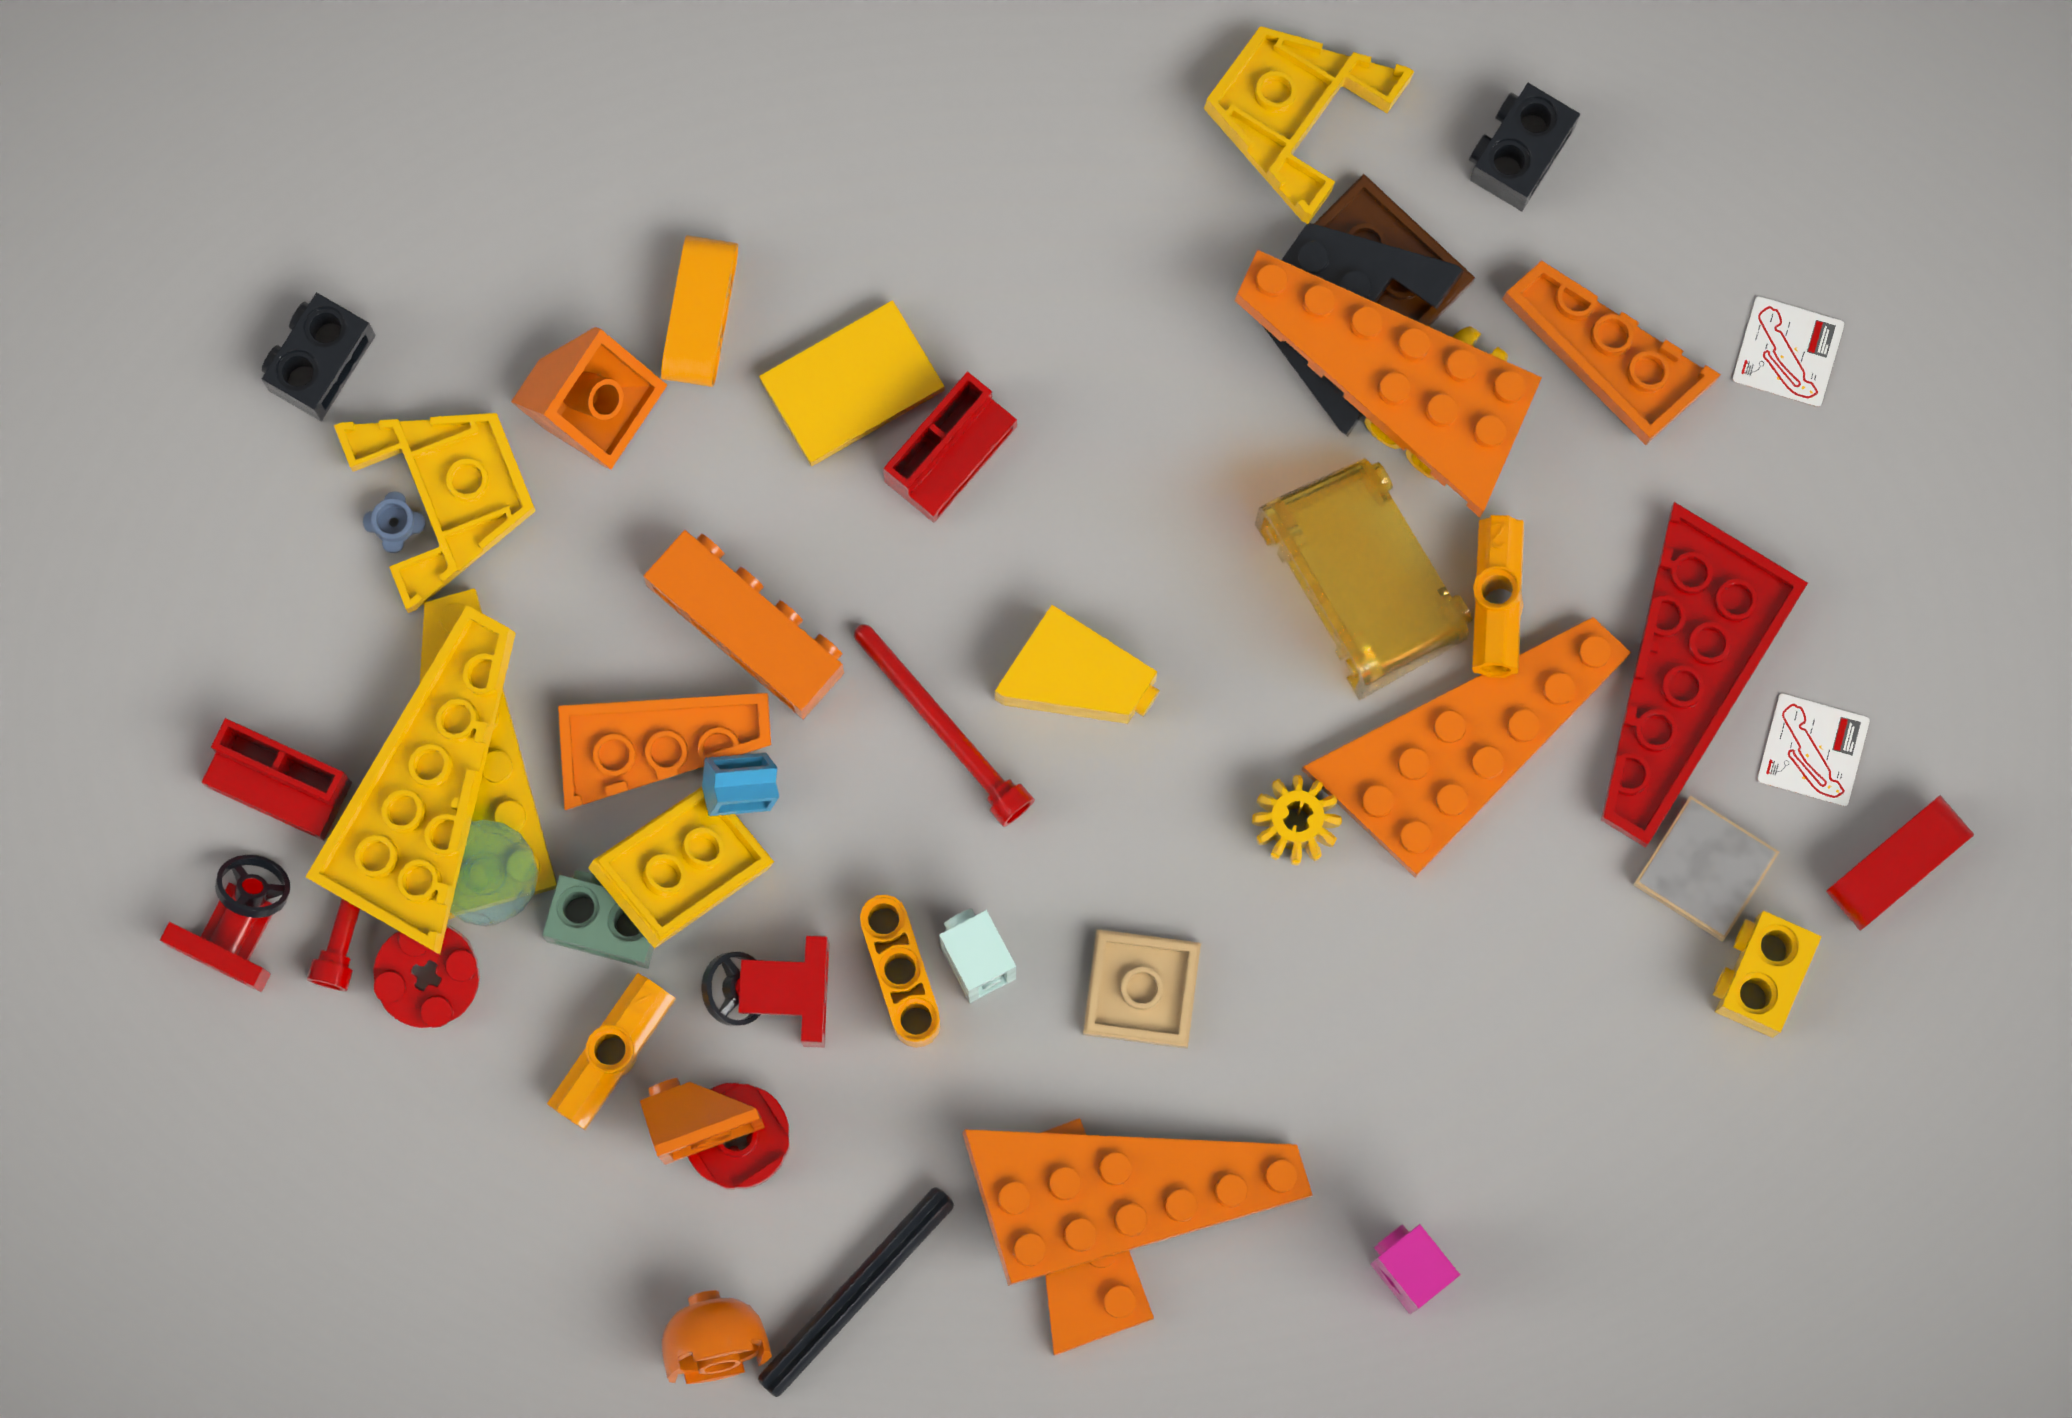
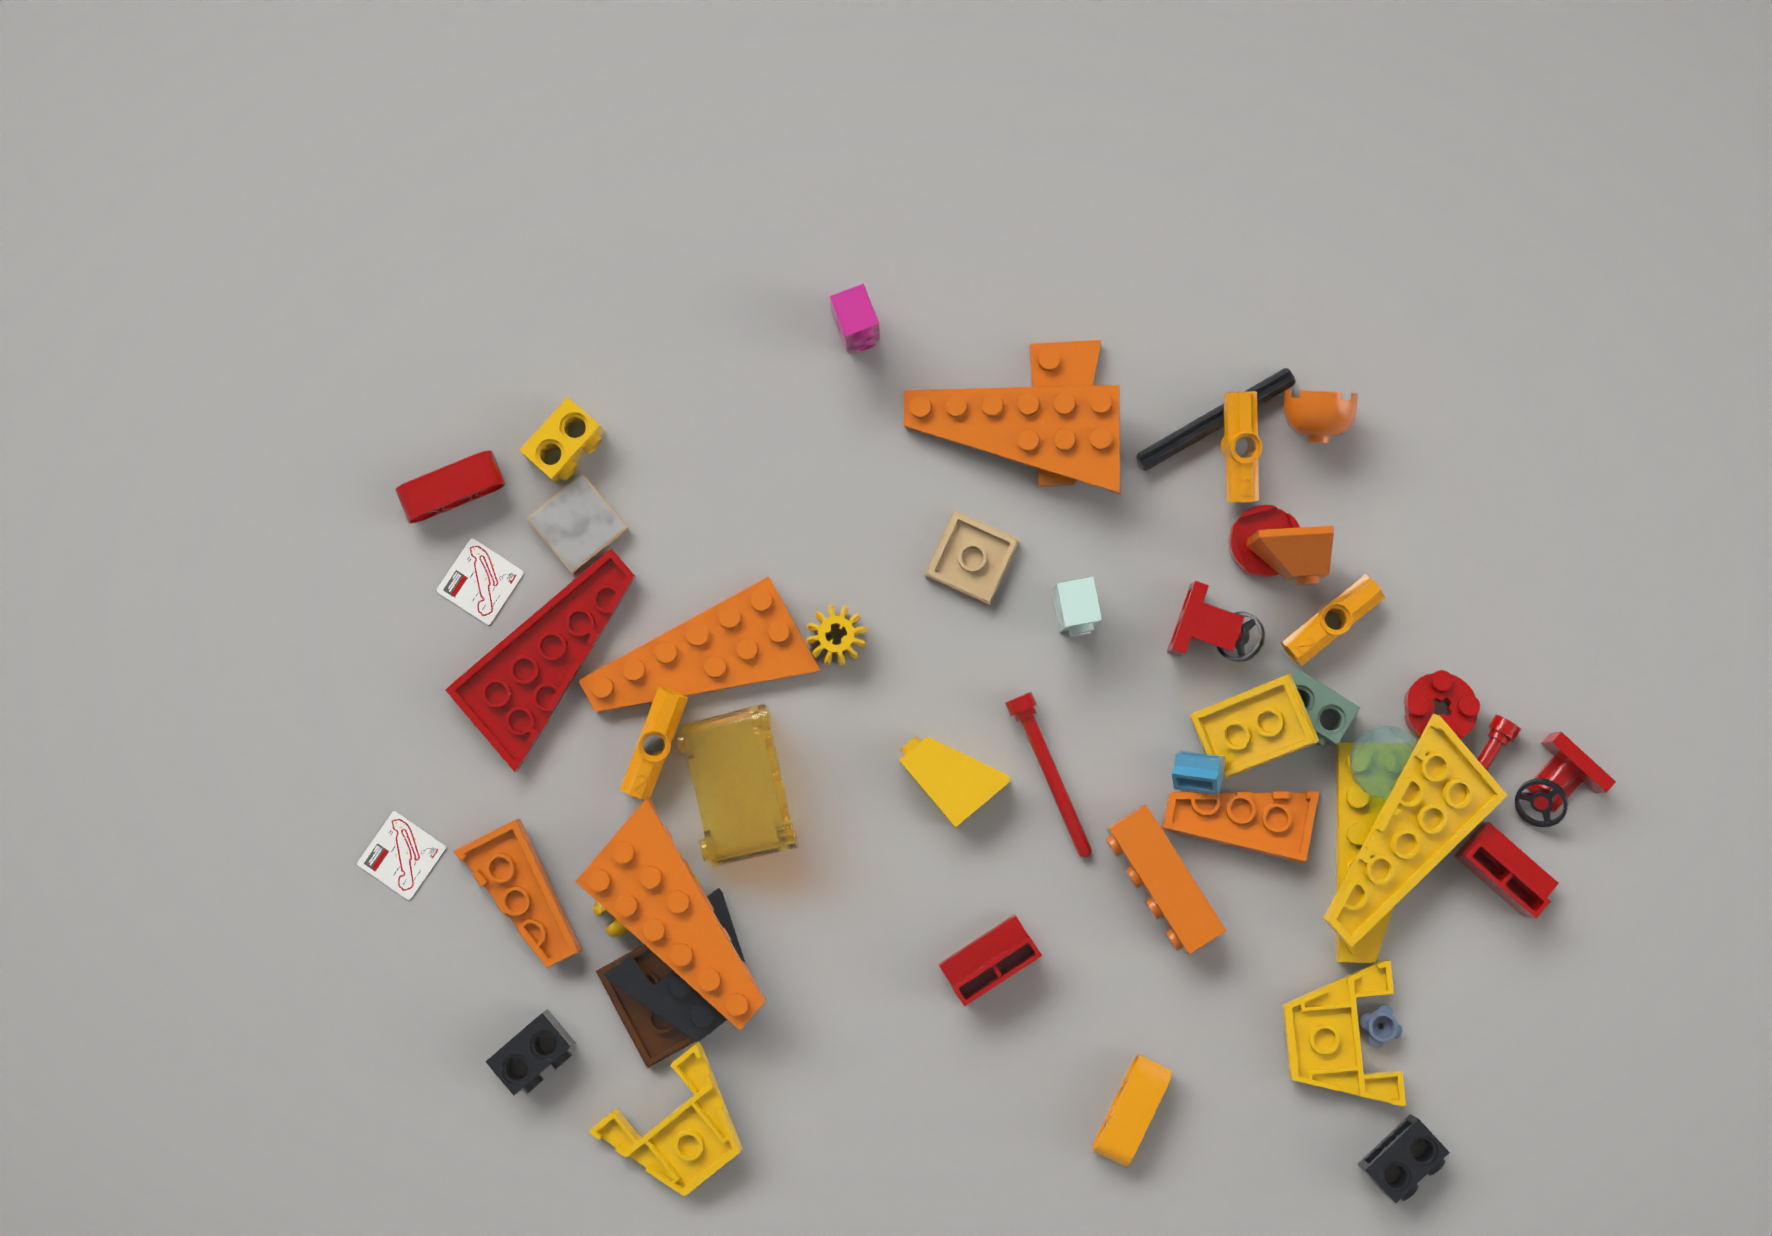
camera: 160 degrees left, 5 degrees up
(590, 395) = (1224, 1072): orange slope -> none
(819, 1284) = (1242, 470): none -> light orange piece
(852, 383) = (1042, 1028): yellow tile -> none
(897, 945) = (1132, 597): light orange beam -> none

